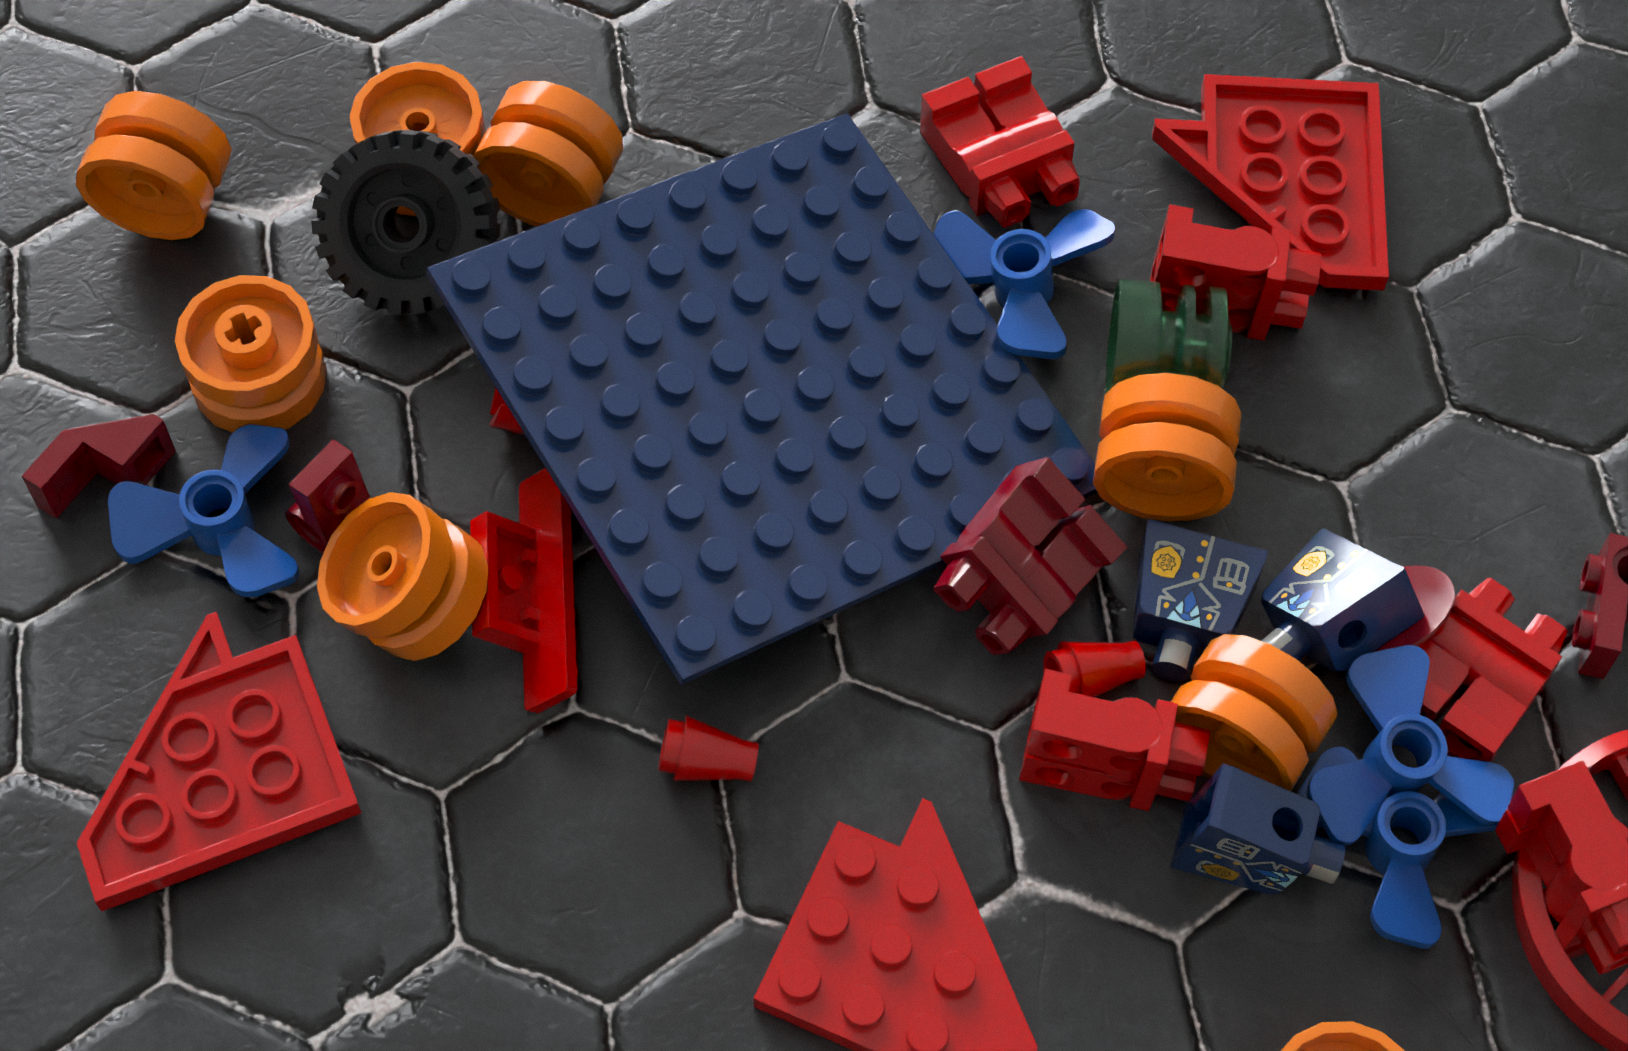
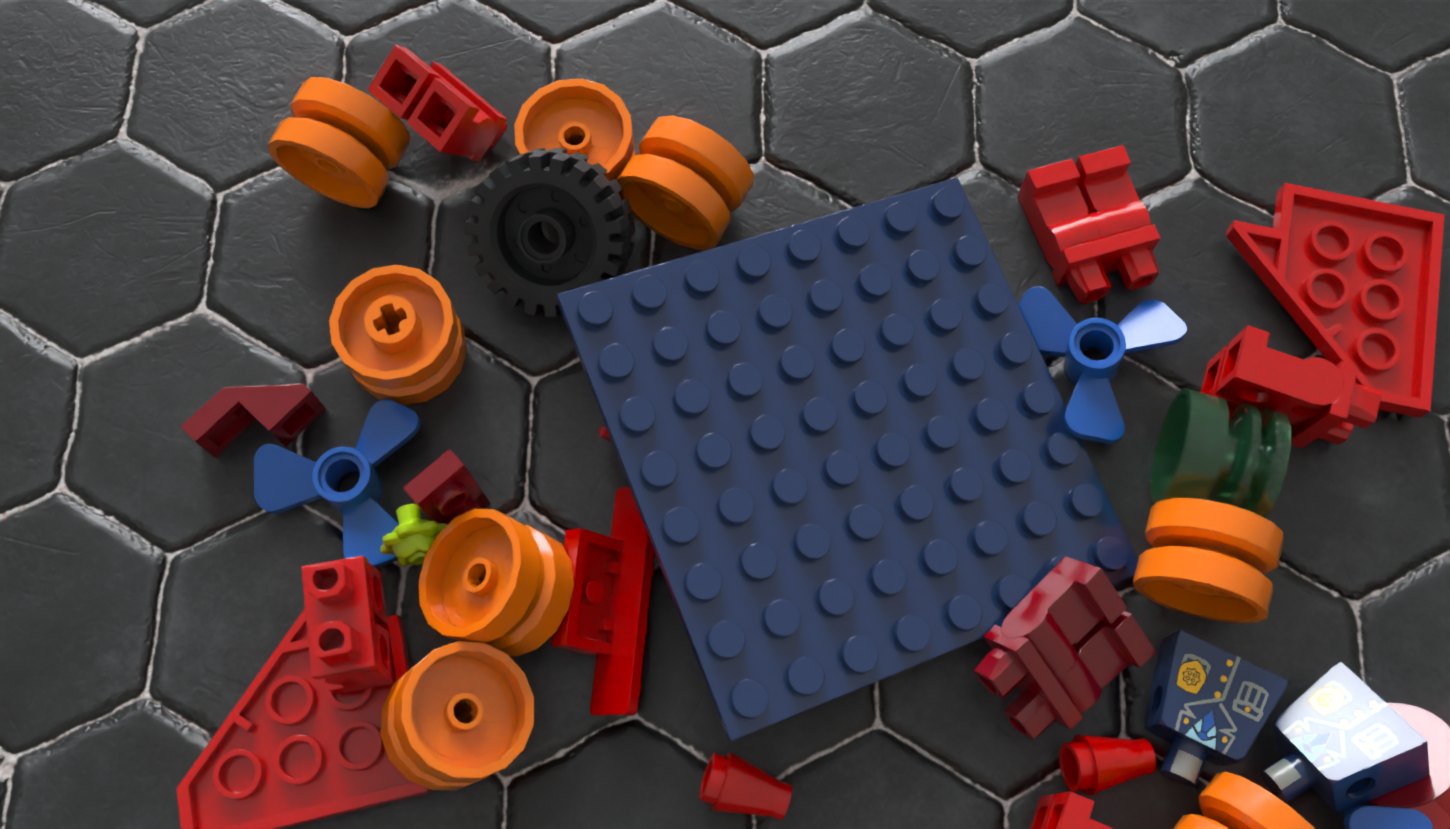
camera: 10 degrees right, 10 degrees up
(247, 634) = (343, 624): none -> red hips
(260, 109) = (438, 105): none -> red hips
(300, 549) = (411, 537): none -> lime plant
(381, 713) = (491, 722): none -> orange wheel

